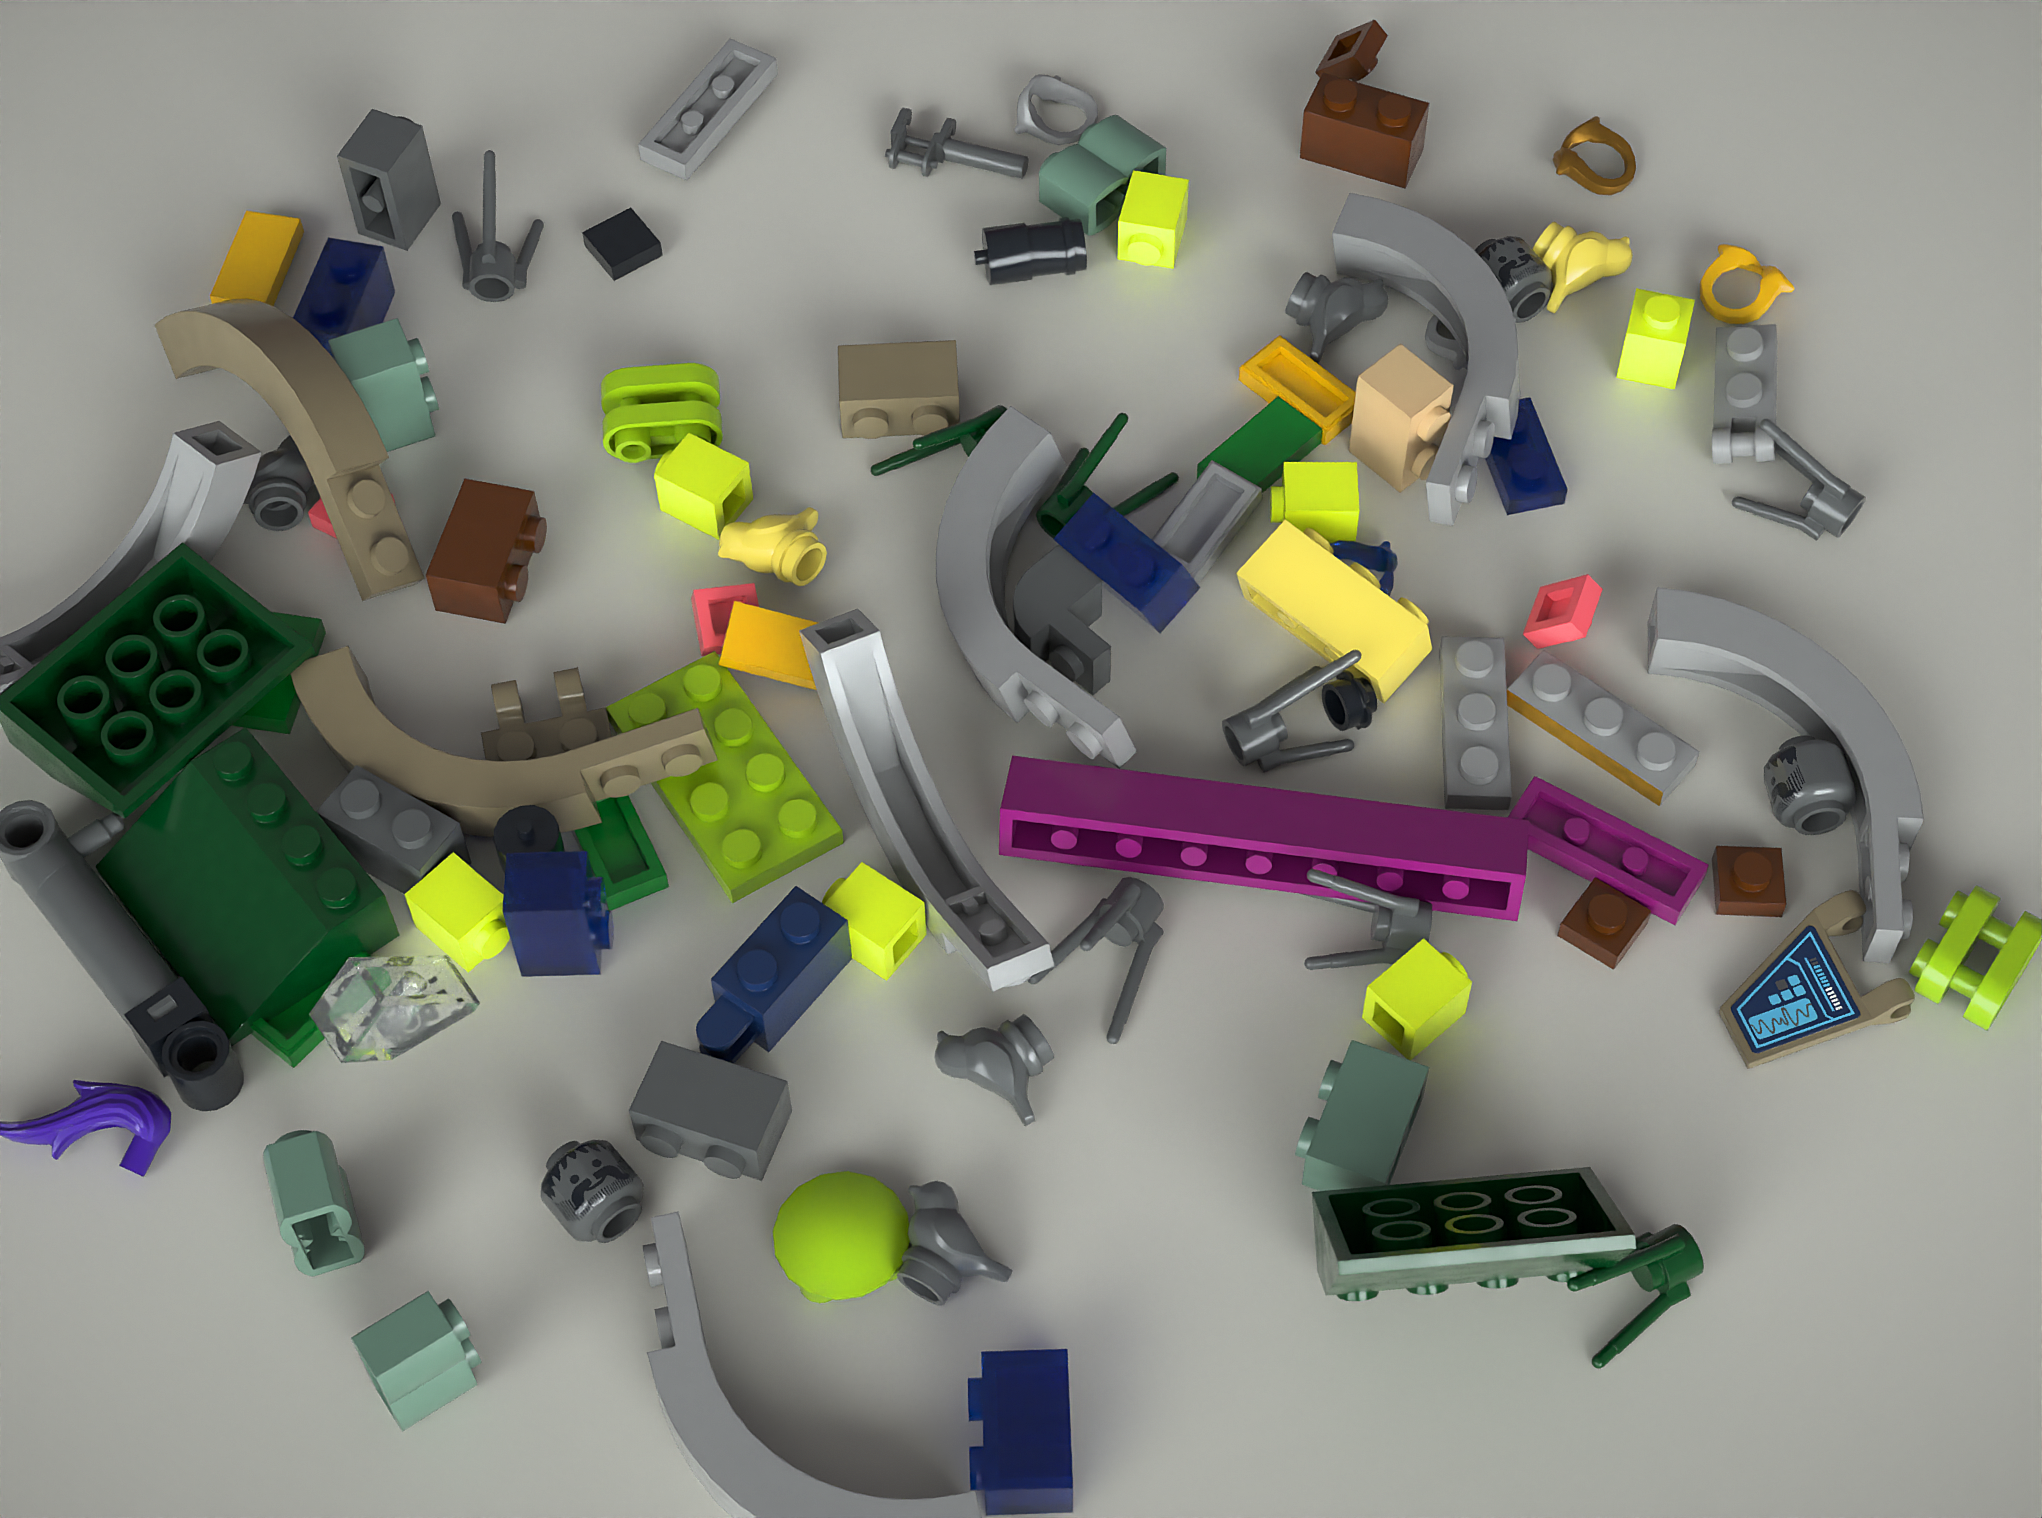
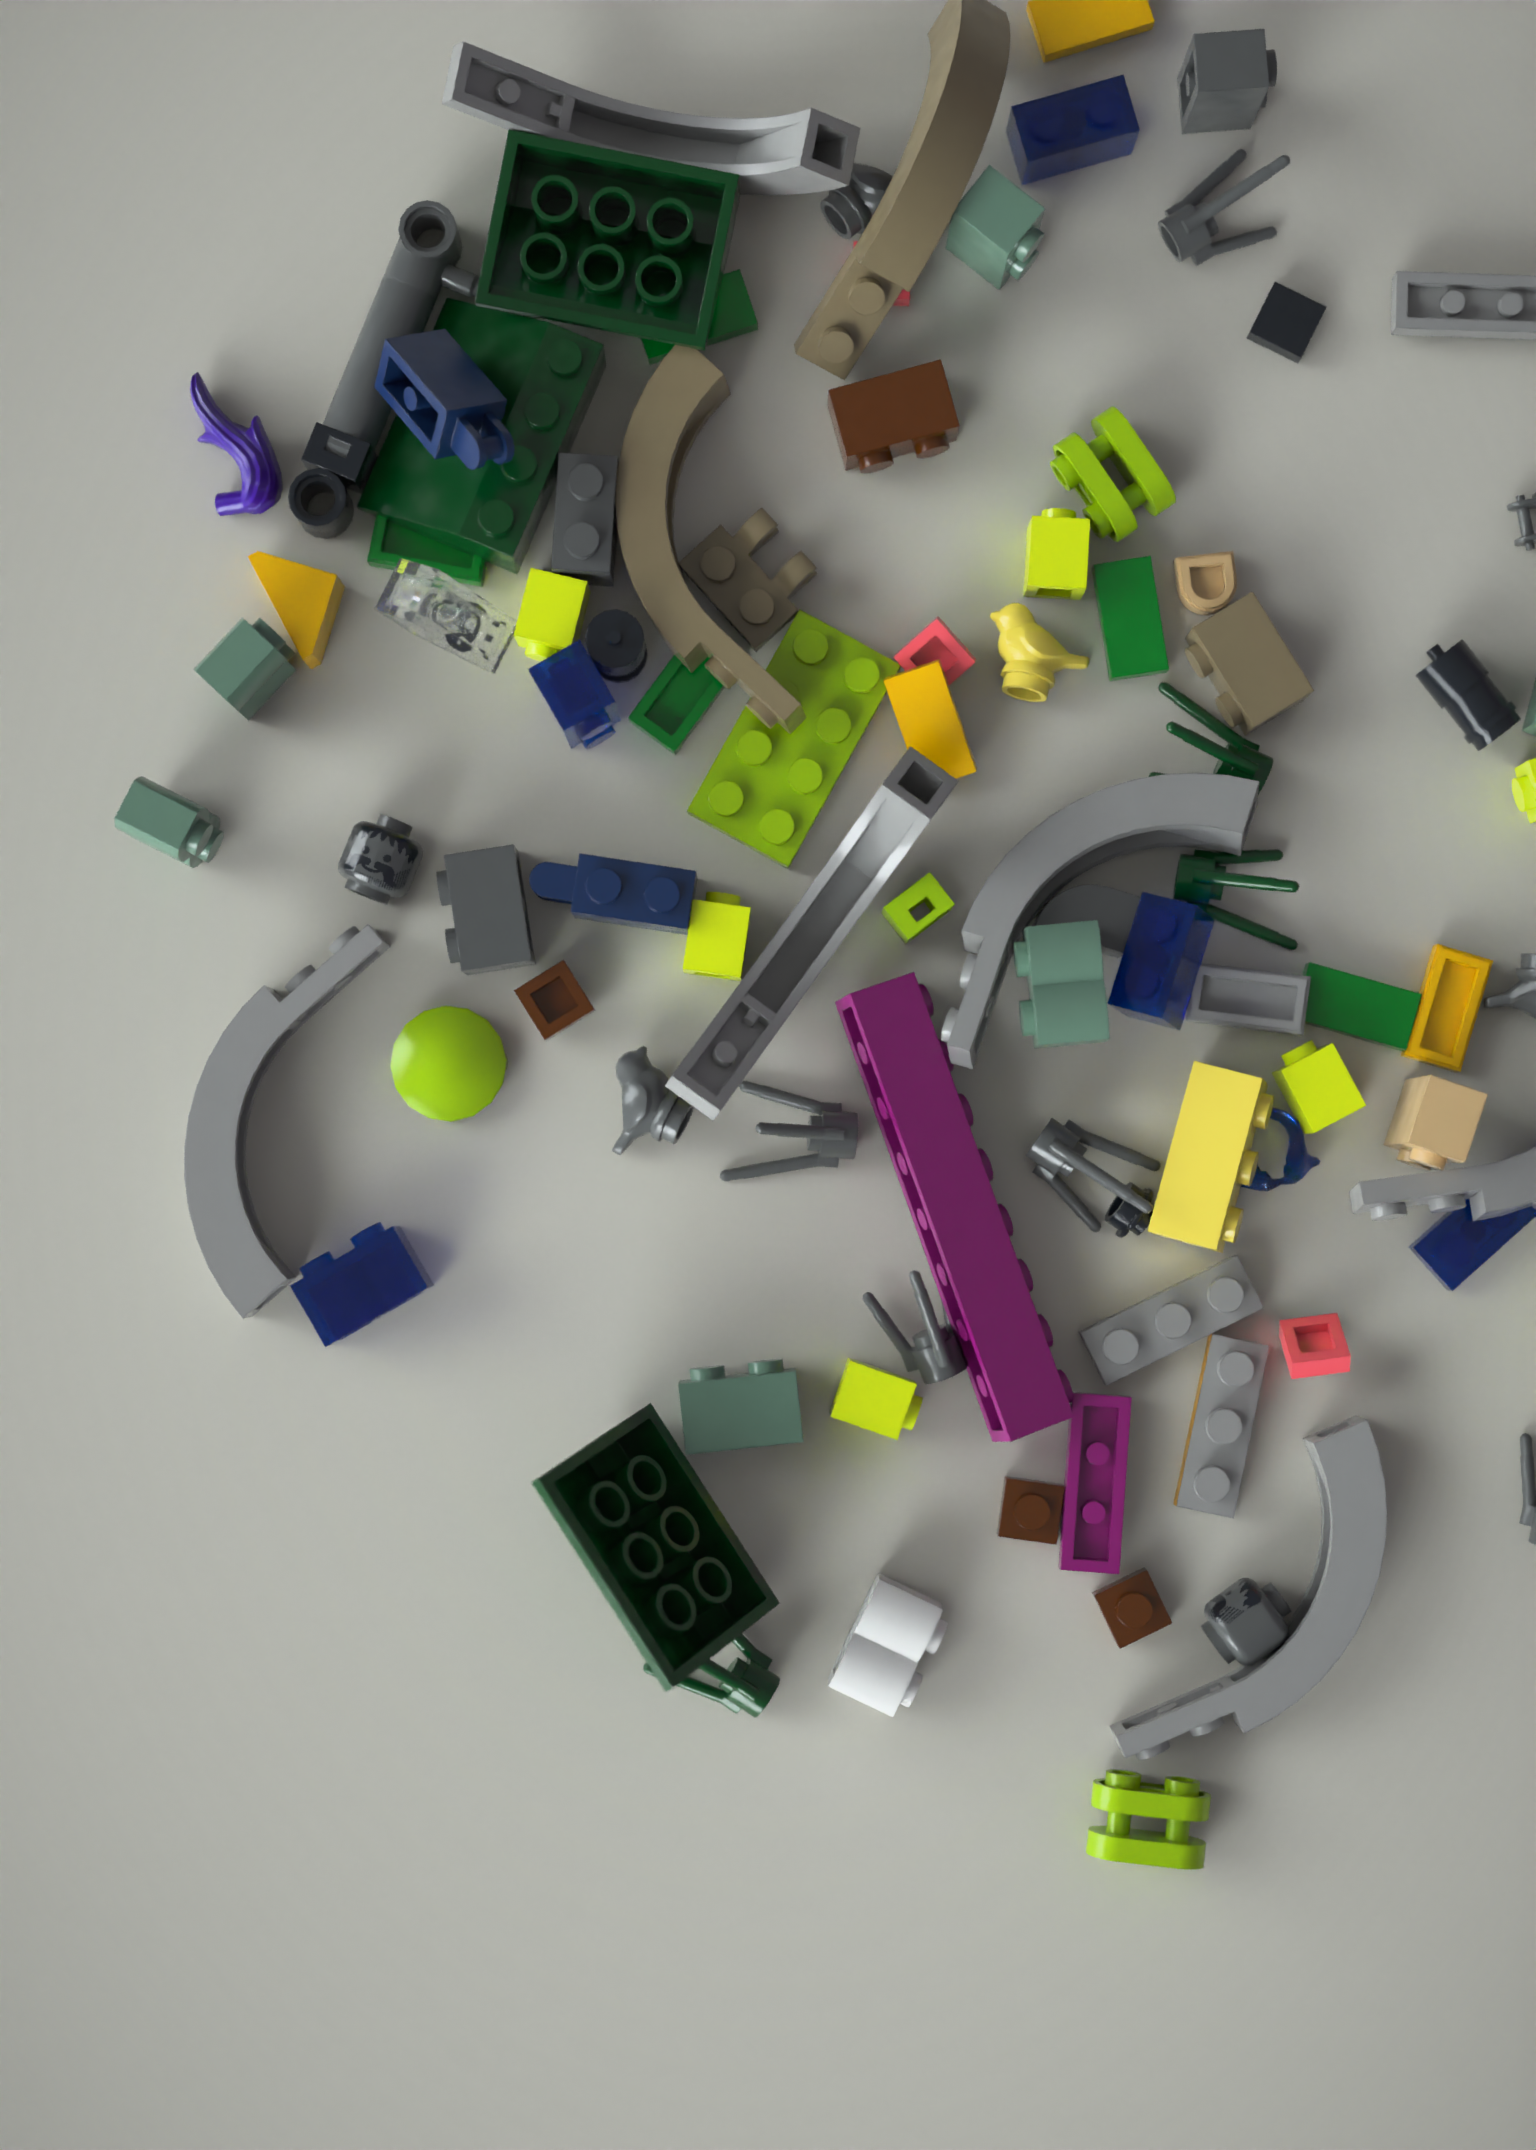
camera: 60 degrees right, 30 degrees up
(193, 866) = (444, 398): none -> dark blue brick
(273, 1111) = (304, 601): none -> yellow slope
(800, 463) = (1130, 618): none -> green tile
(803, 397) = (1206, 581): none -> tan tile
(840, 1098) = (554, 1000): none -> reddish brown plate
(942, 1247) = (473, 1145): dark grey animal -> none
(955, 742) = (924, 890): none -> lime piece
(1102, 625) = (1063, 983): none -> sand green brick
(1683, 1107) = (887, 1645): none -> white brick
(1805, 991) = (1050, 1694): flag -> none

